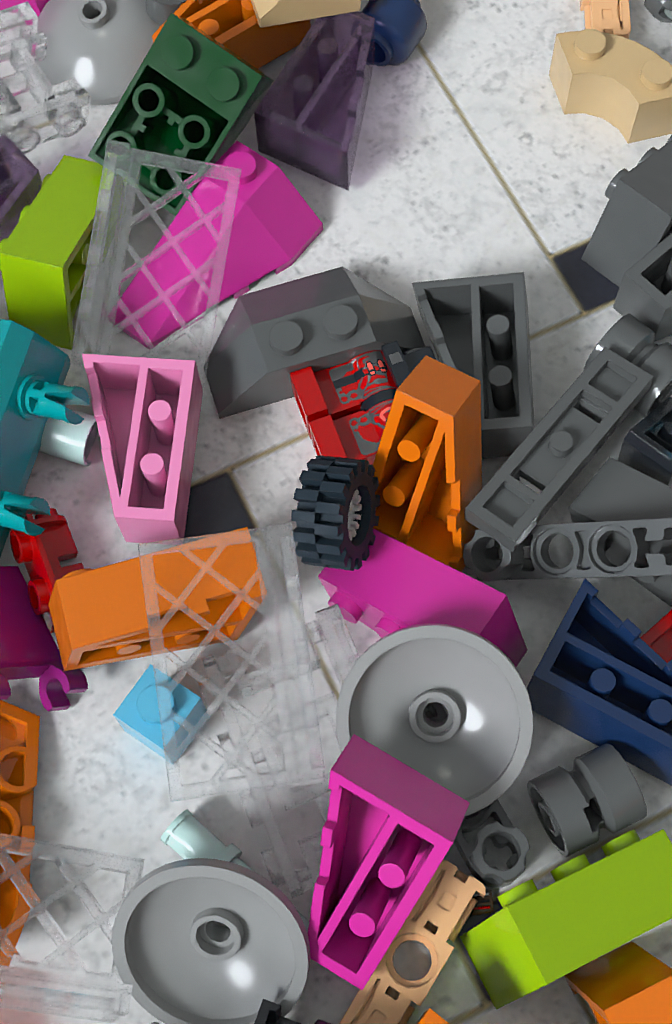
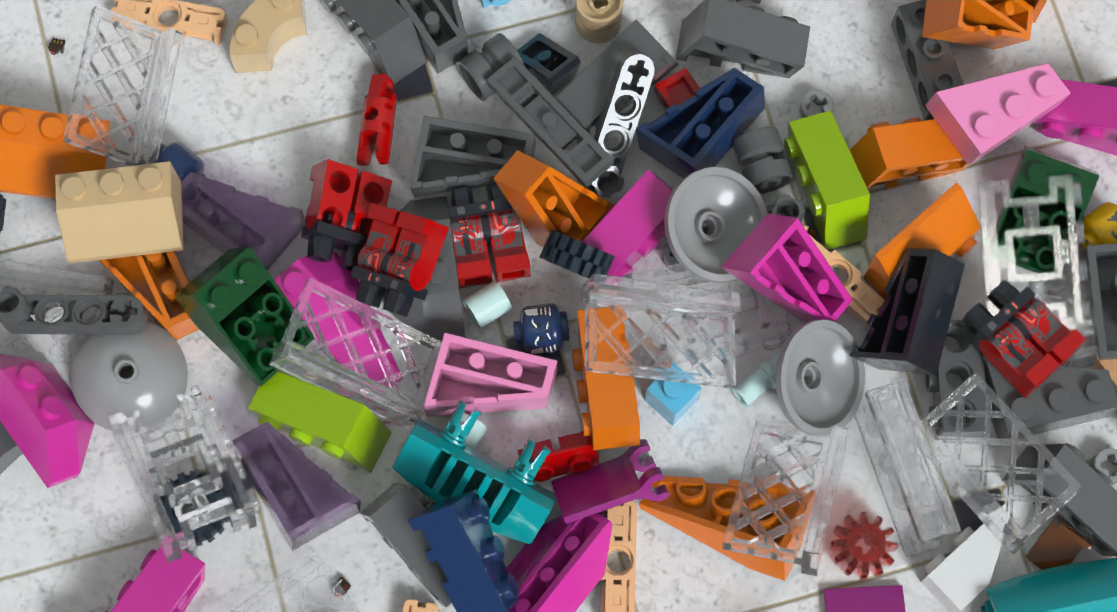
camera: 85 degrees left, 5 degrees up
(237, 499) = (542, 329): none -> dark blue head
(267, 429) = (487, 304): none -> light aqua beam
(296, 279) = (398, 258): none -> hips
(342, 211) = (340, 211): none -> red hips
(517, 241) = (377, 121): none -> red hinge

